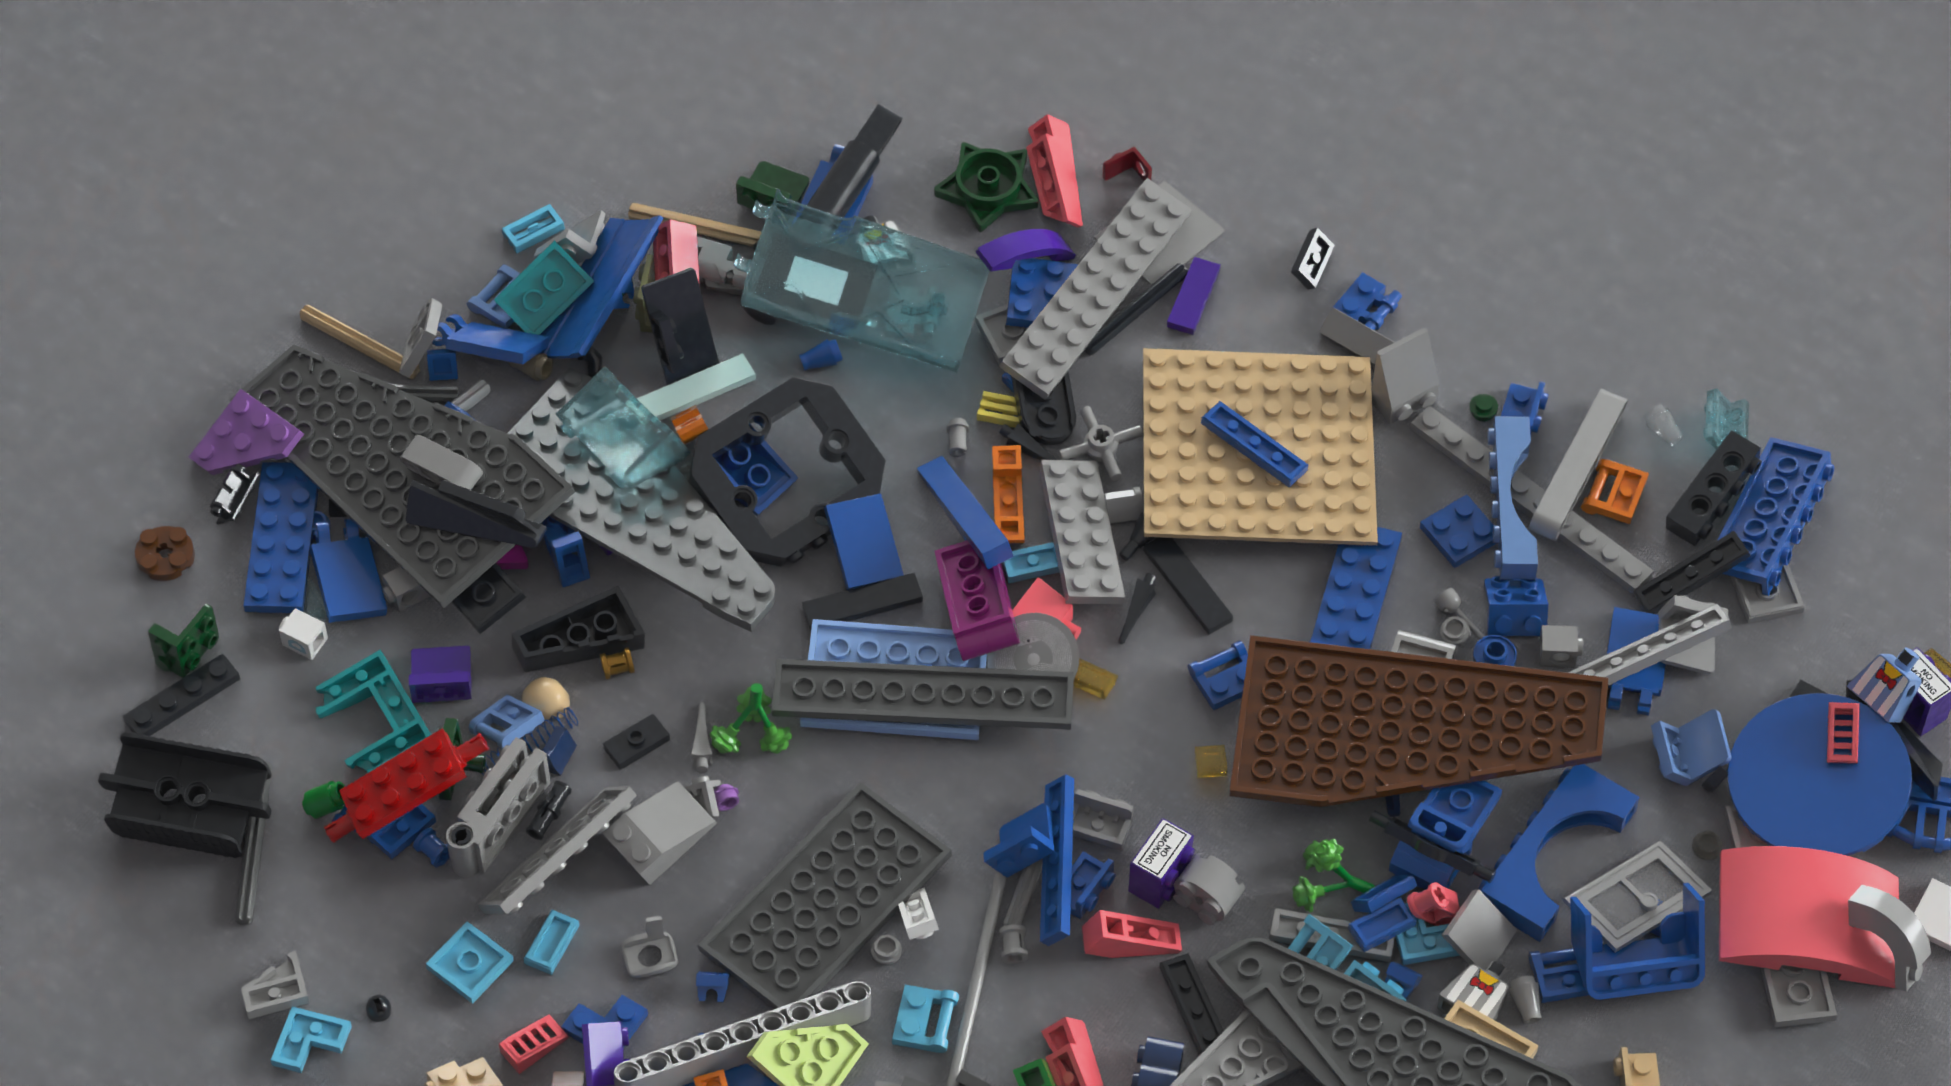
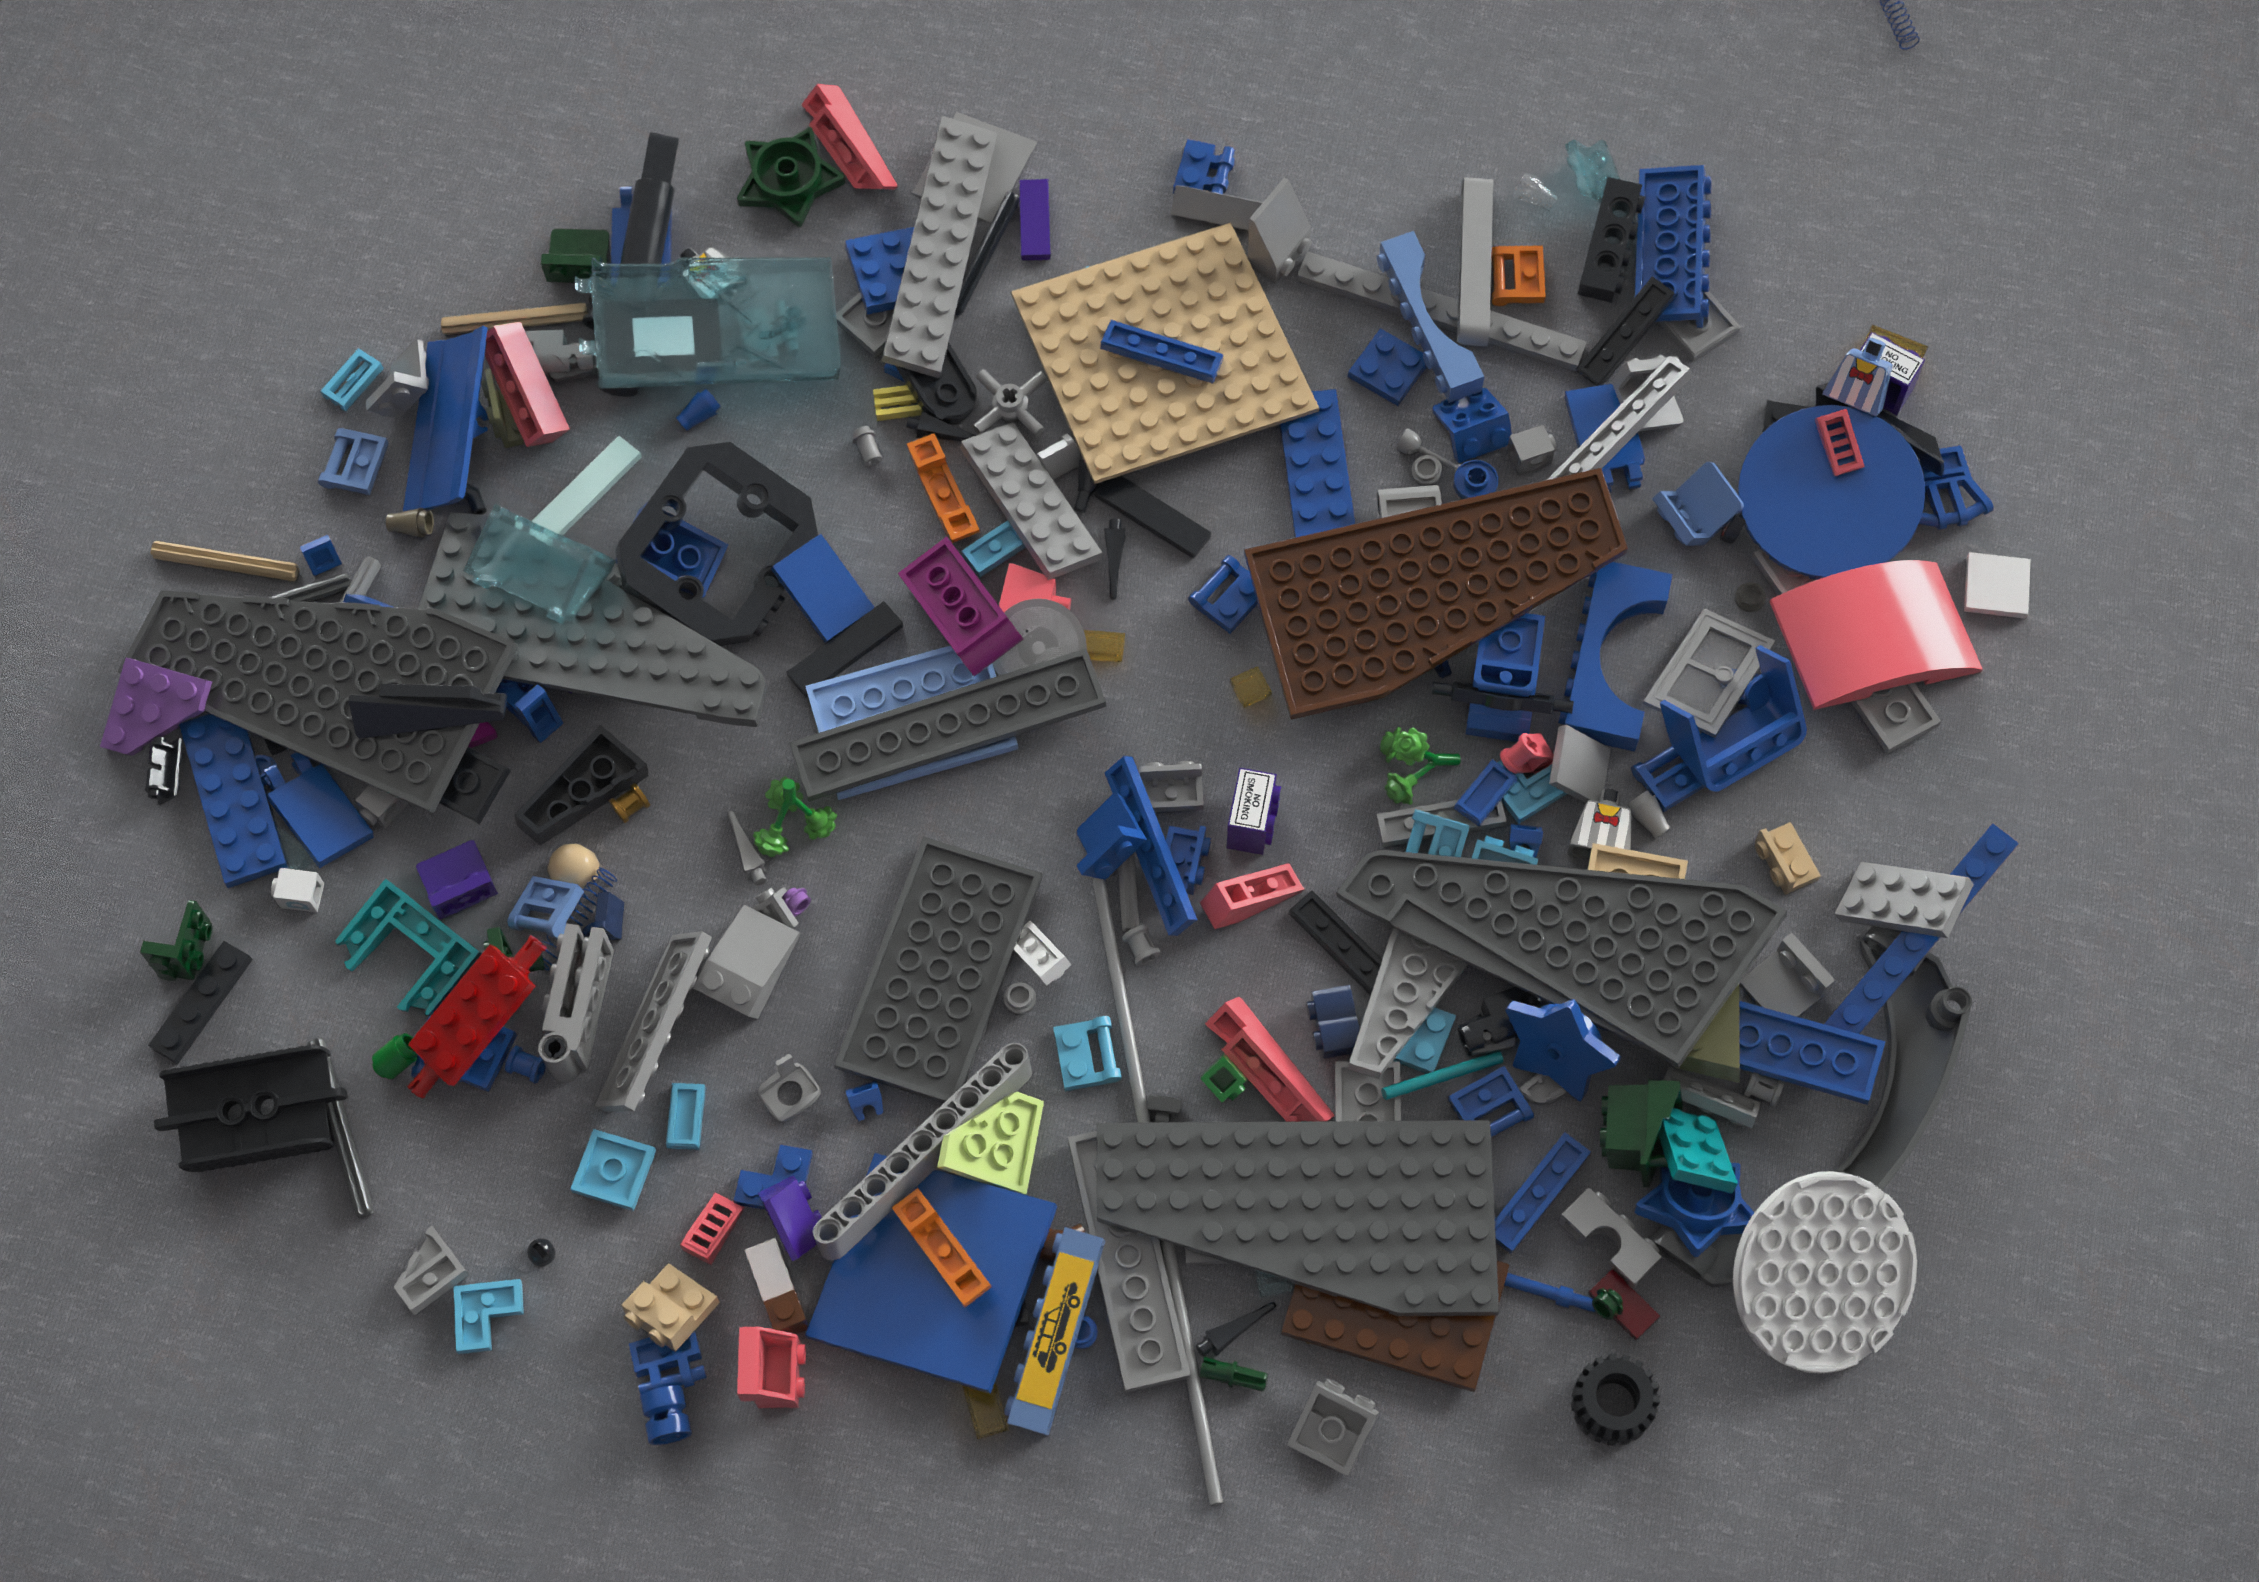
camera: 20 degrees left, 10 degrees up
(162, 538) = (108, 841): reddish brown plate -> none
(420, 336) = (288, 535): light grey tile -> none
(440, 463) = (369, 666): light grey beam -> none
(490, 340) = (359, 514): blue tile -> none
(544, 289) = (393, 442): teal plate -> none
(548, 810) = (625, 981): black pin -> none
(636, 741) = (682, 876): black plate -> none
(680, 325) = (548, 431): black bracket -> none
(689, 424) = (599, 530): orange slope -> none
(966, 512) = (912, 523): blue slope -> none
(1024, 244) = (852, 229): dark purple slope -> none
(1123, 161) = (908, 107): dark red bracket -> none
(1208, 888) = (1306, 819): light grey brick -> none
(1312, 258) = (1134, 142): plate -> none
(1383, 893) = (1473, 760): blue tile -> none
(1483, 407) = (1358, 234): dark green plate -> none
(1526, 402) = (1396, 217): blue bracket -> none
(1897, 926) = (1966, 614): light grey arch -> none

